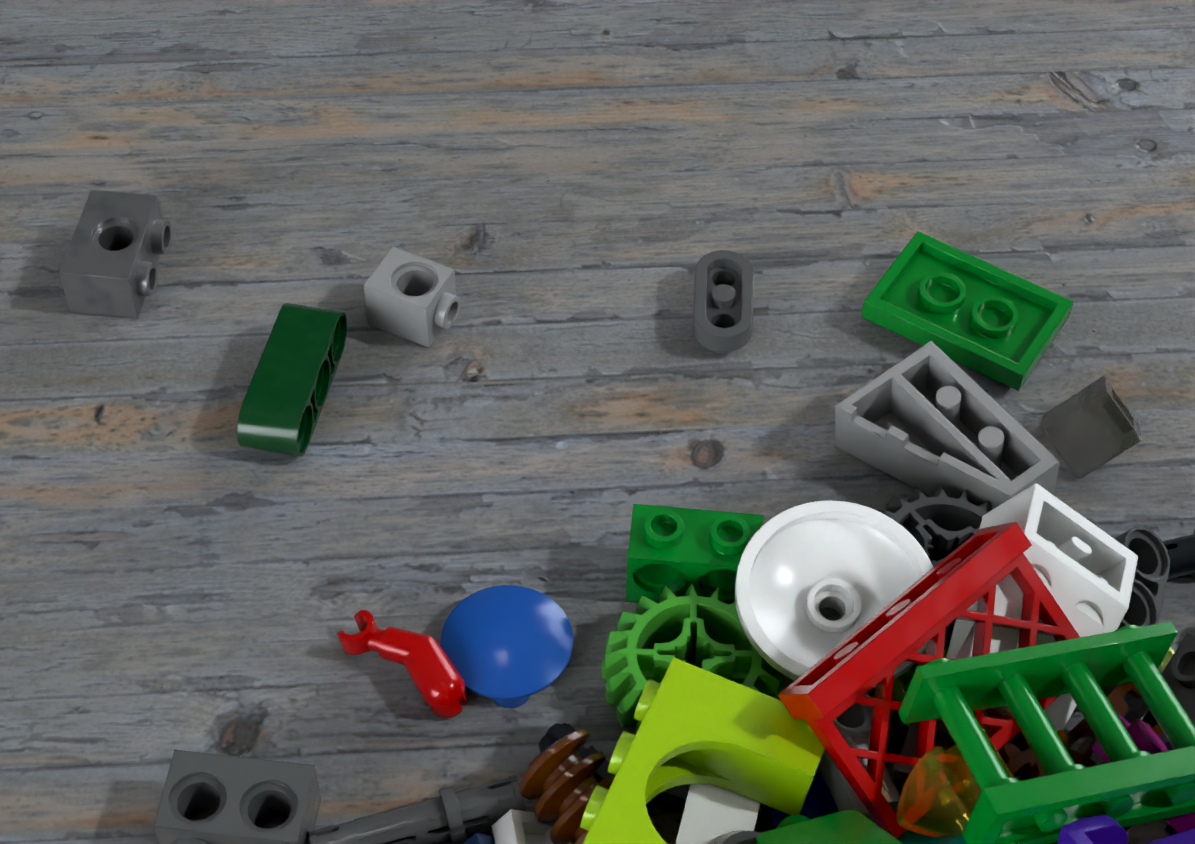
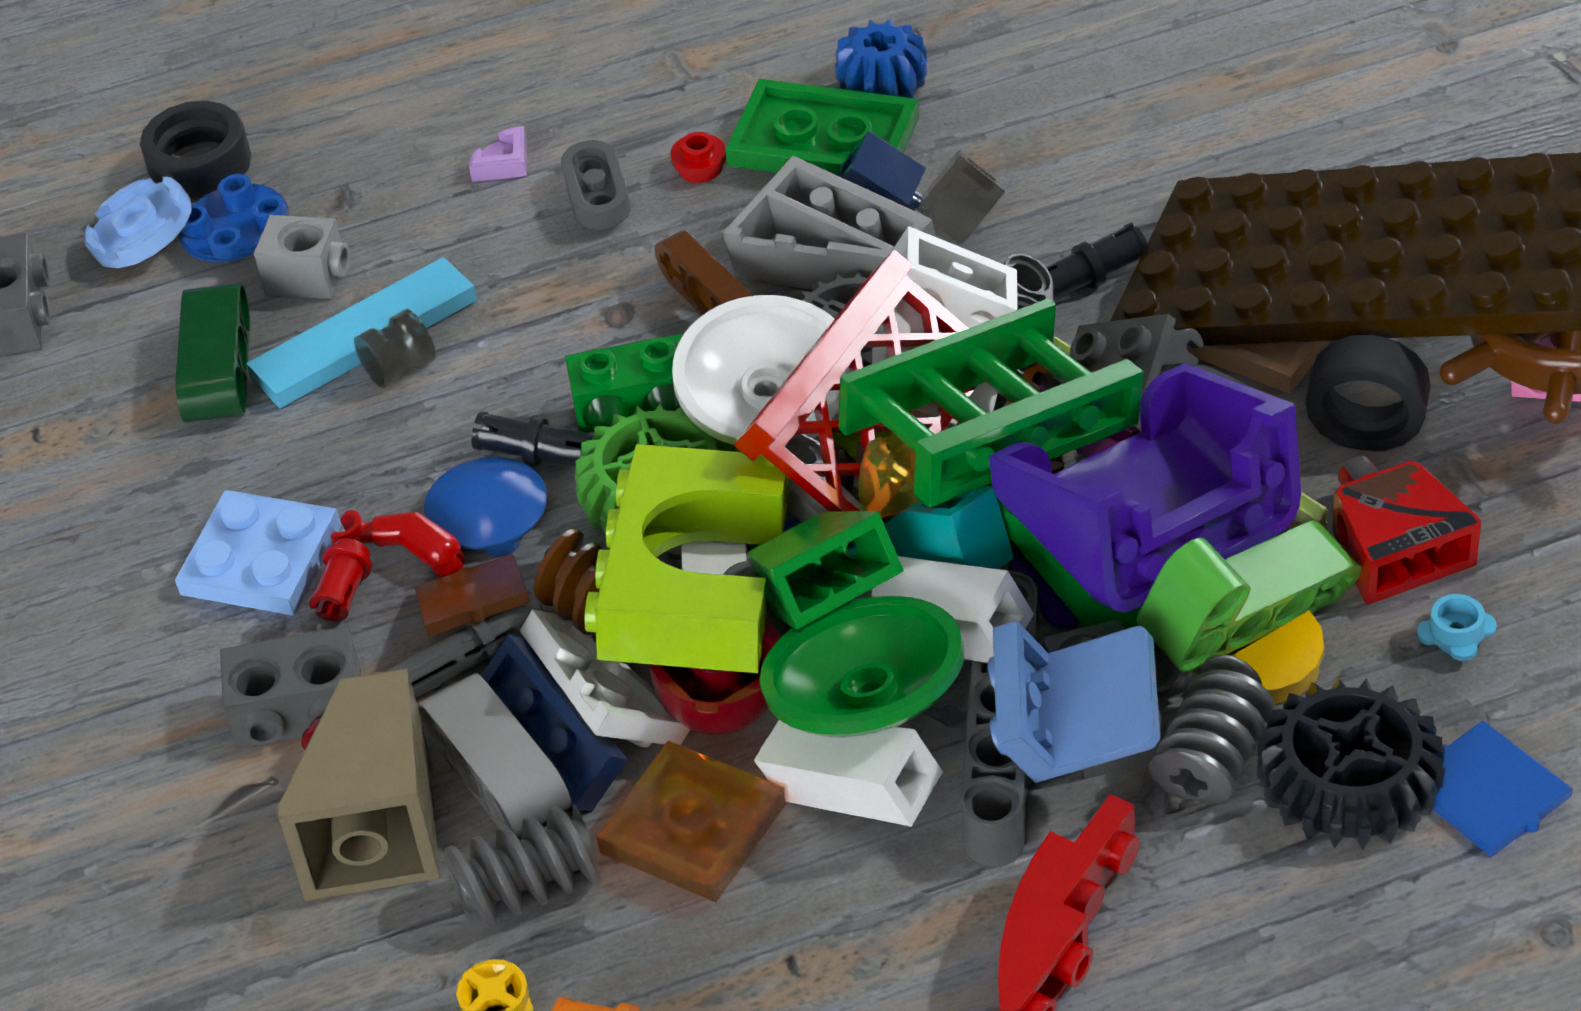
camera: 10 degrees left, 5 degrees down
(263, 625) = (258, 552): none -> light blue plate
(270, 212) = (138, 222): none -> light blue tile
(331, 689) = (345, 566): none -> red pin
(354, 176) = (192, 124): none -> black tyre
(358, 234) = (230, 220): none -> blue dish
(445, 397) = (329, 347): none -> medium azure tile
(456, 758) = (471, 595): none -> reddish brown piece
(470, 430) = (395, 348): none -> clear smoke wheel
(575, 581) = (530, 439): none -> black pin
(640, 241) = (501, 158): none -> lavender tile
(802, 447) = (696, 273): none -> reddish brown beam
(834, 298) = (698, 157): none -> red plate
(1017, 382) = (884, 171): none -> dark blue brick
(1046, 246) = (882, 60): none -> blue gear

